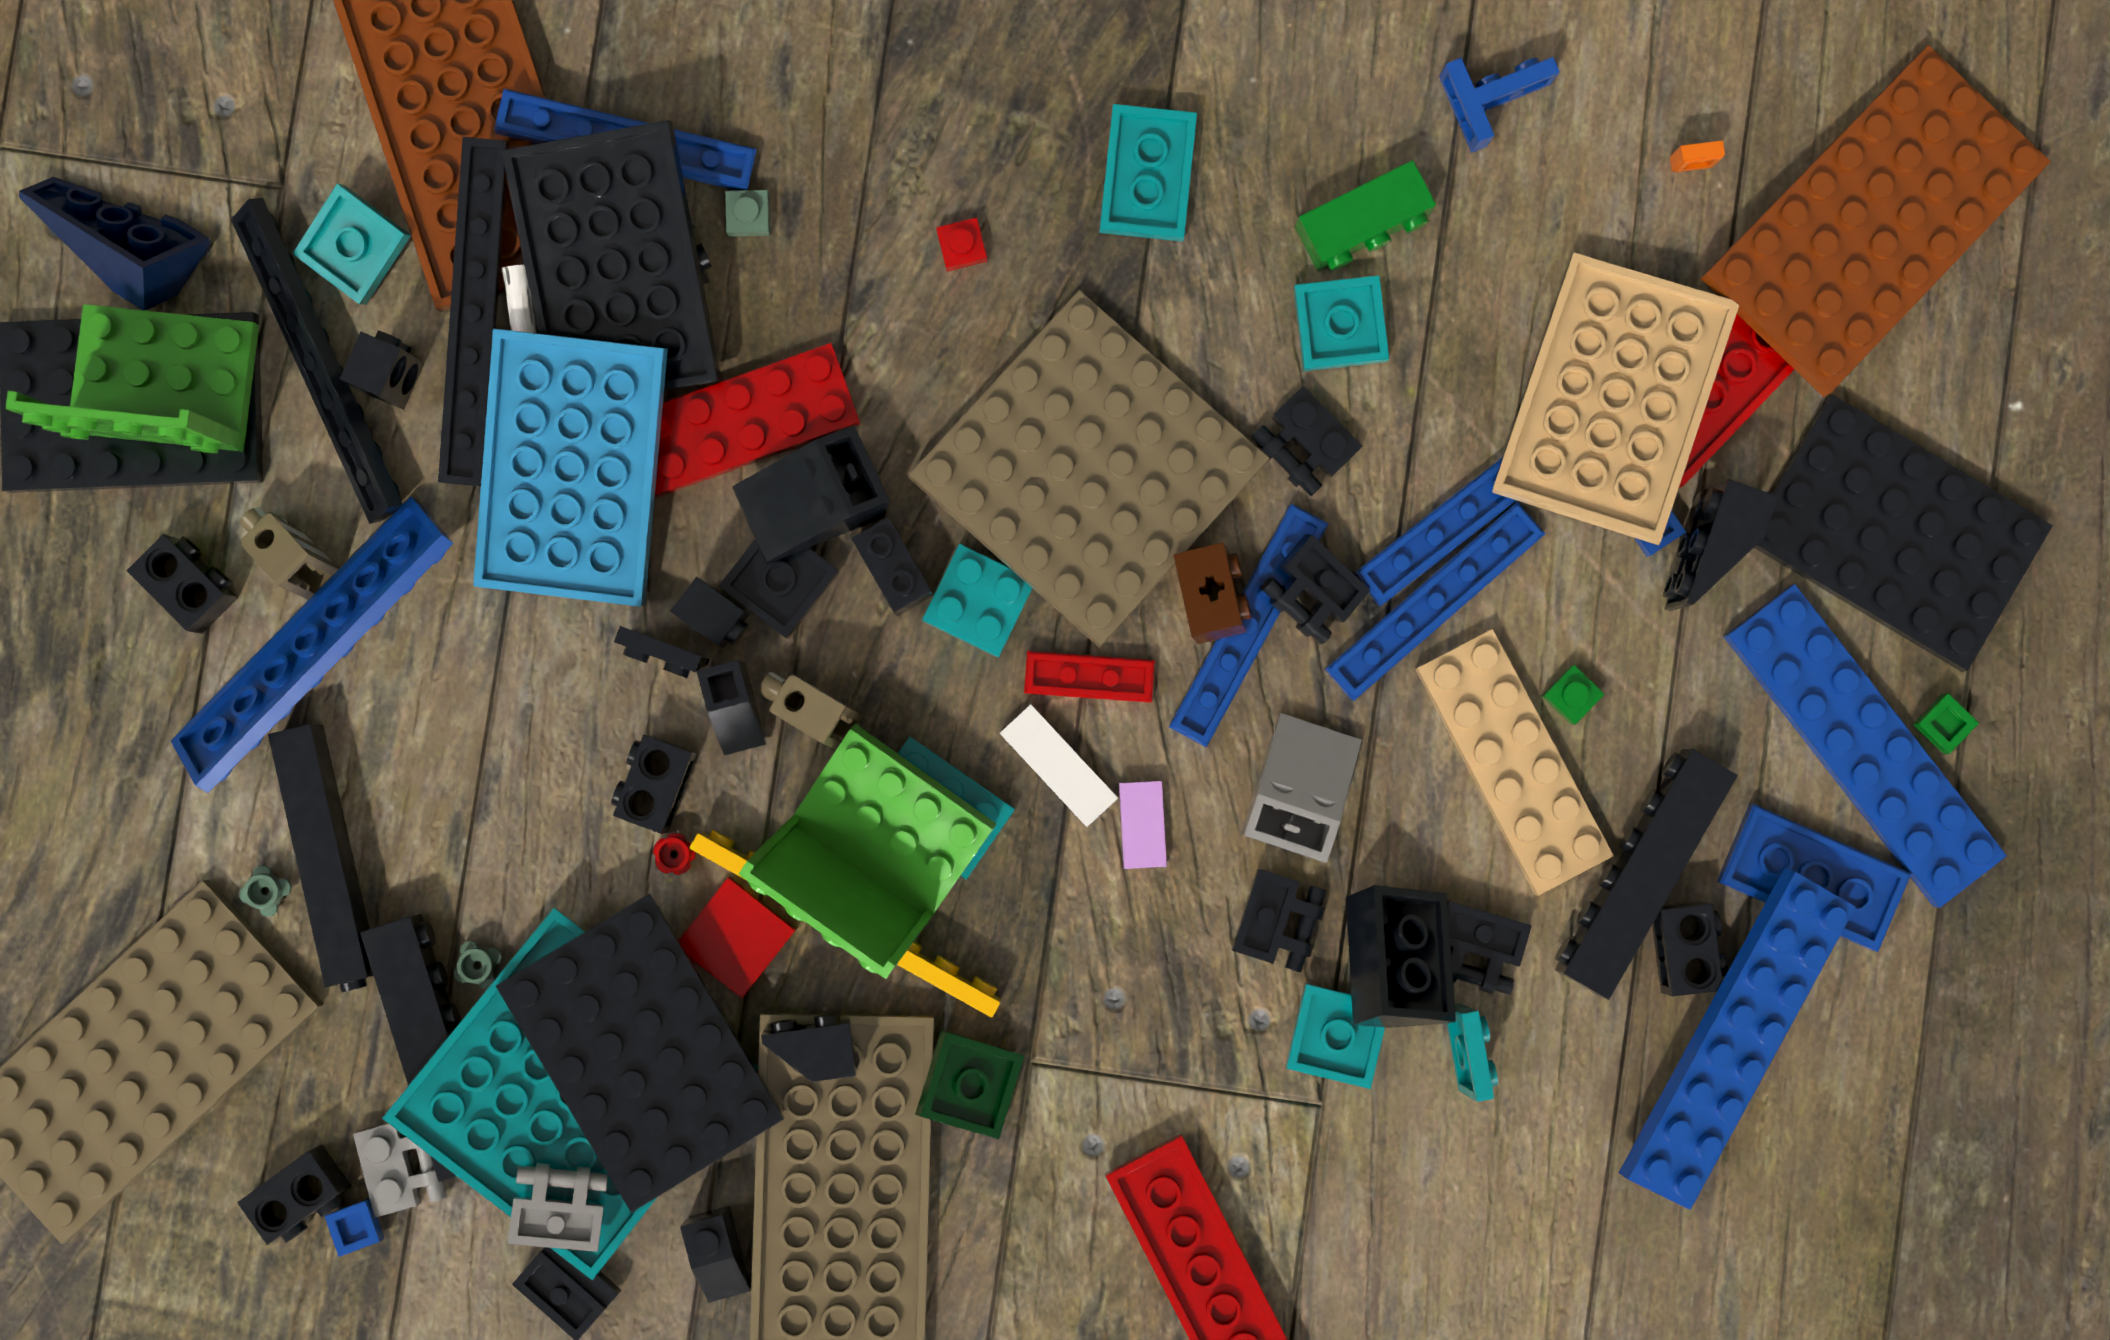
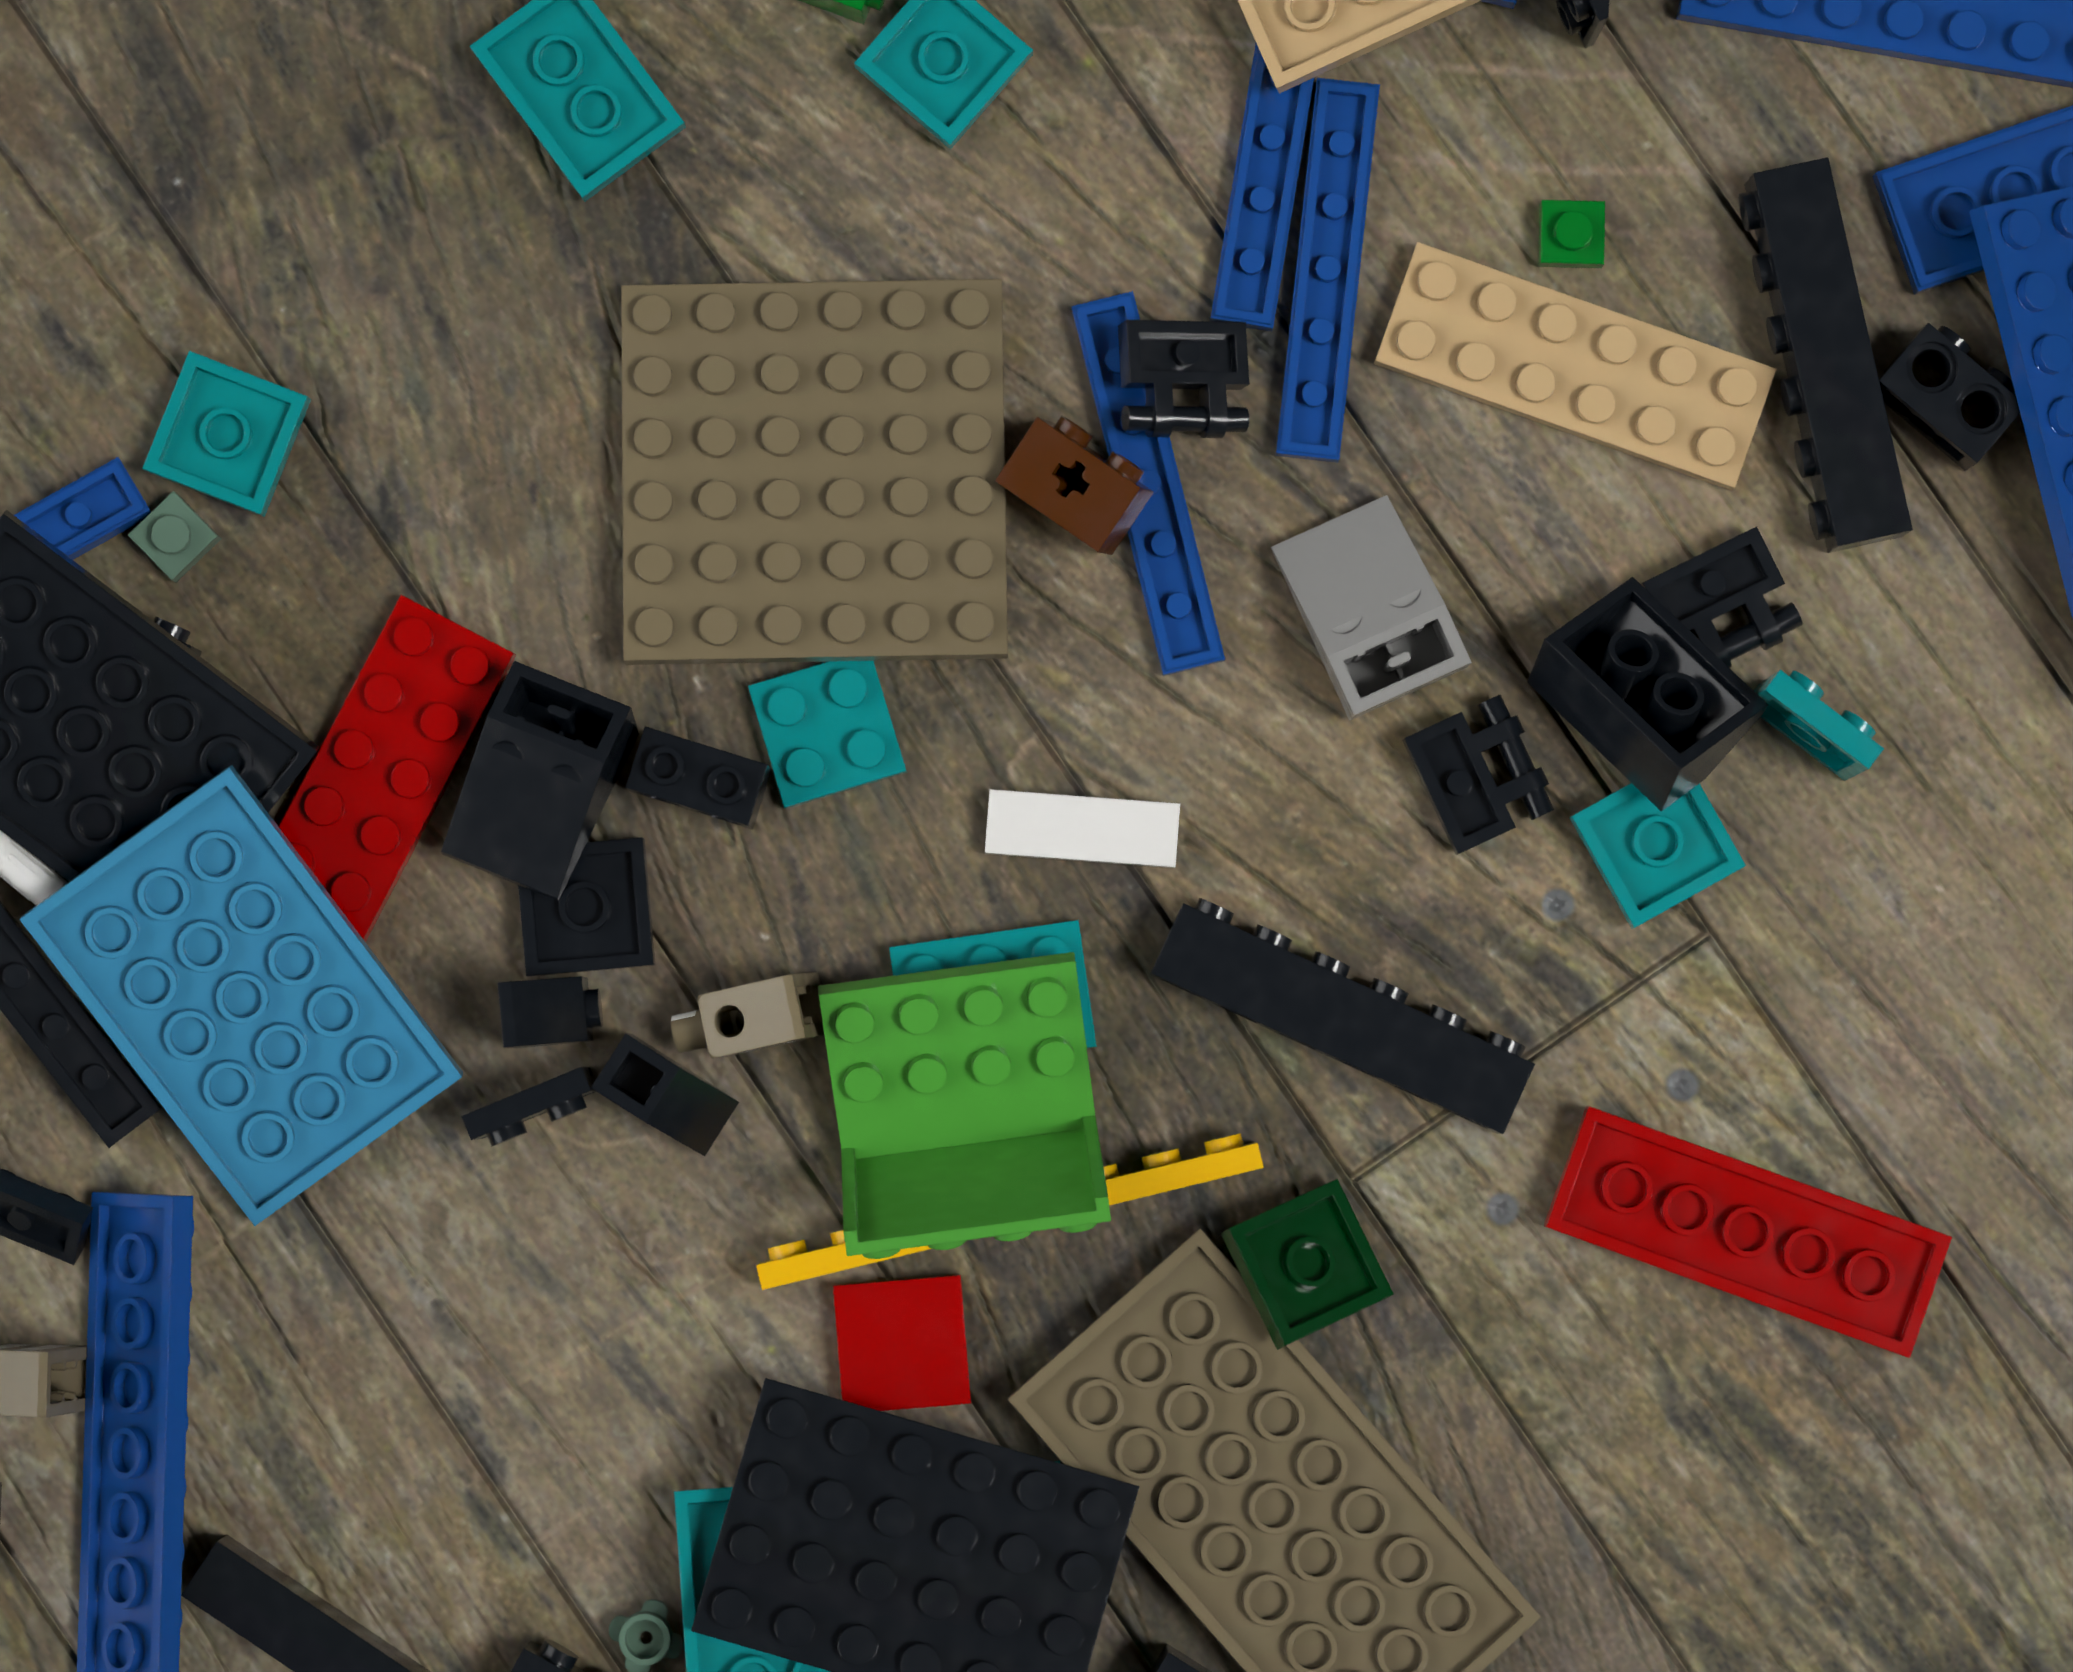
camera: 40 degrees left, 0 degrees up
(663, 858) = (732, 1318): red plate -> none
(664, 788) = (672, 1251): black brick -> none
(814, 1050) = (1106, 1377): black slope -> none
(819, 185) = (226, 433): none -> teal plate
(961, 244) = (444, 354): red plate -> none
(1089, 676) = (1025, 700): red tile -> none
(1100, 980) = (1343, 1018): none -> black brick
(1142, 824) = (1233, 808): lavender tile -> none
(1315, 432) = (1026, 204): black plate -> none

